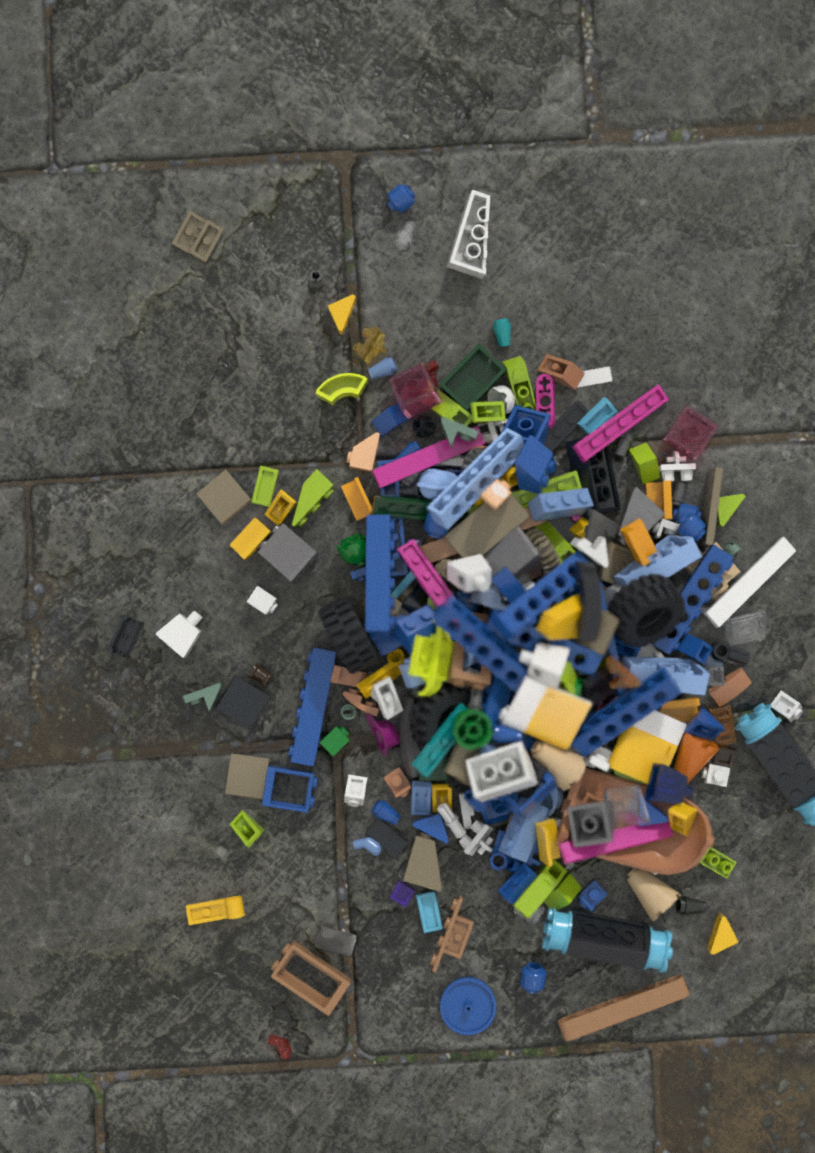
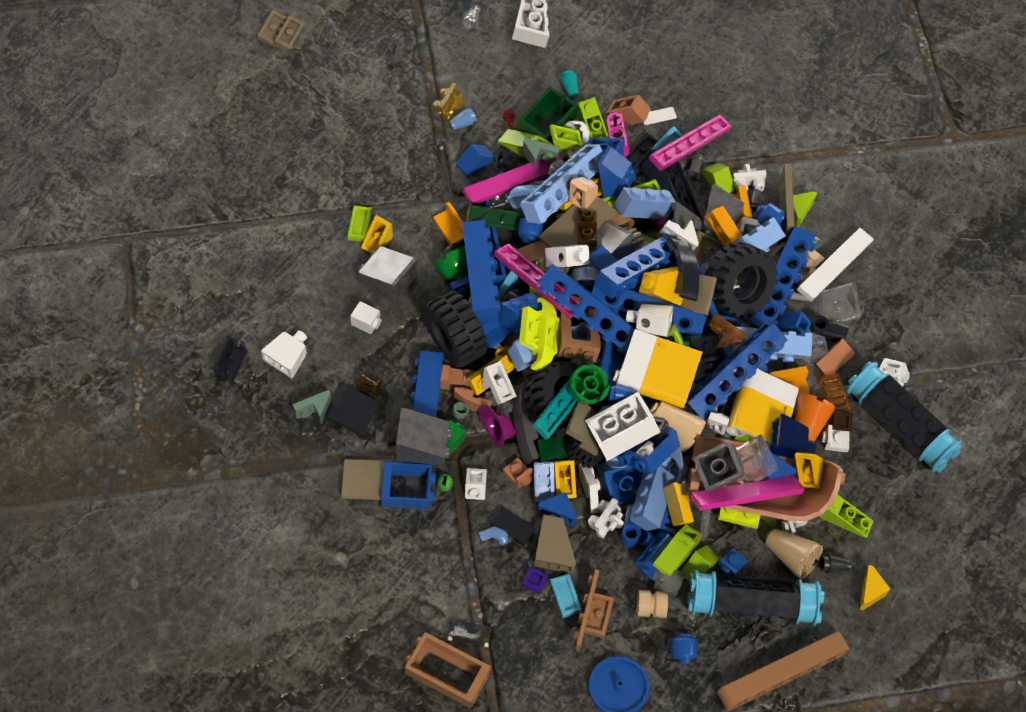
camera: 10 degrees left, 25 degrees down
(215, 910) = (340, 611): yellow plate -> none
(224, 497) = (320, 233): dark tan slope -> none
(246, 828) = (368, 528): lime slope -> none
(250, 538) = (348, 268): yellow panel -> none
(306, 753) = (422, 438): none -> flat silver slope
(312, 492) = (408, 221): lime slope -> none
(330, 786) = (449, 483): none -> bright green hinge
(341, 386) = (426, 133): neon yellow brick -> none
(342, 311) = (419, 76): yellow slope -> none
(364, 454) = (452, 187): light nougat slope -> none
(385, 812) = (509, 501): blue cone -> none
(415, 390) = (495, 129): clear pink brick -> none
(451, 820) = (577, 500): white axle -> none
(475, 803) = (600, 464): blue cone -> none
(495, 534) = (587, 228): none -> dark brown slope
(509, 932) = (652, 604): none -> tan wheel
(690, 433) = (755, 147): clear pink brick -> none
(704, 725) = (816, 388): blue slope -> none

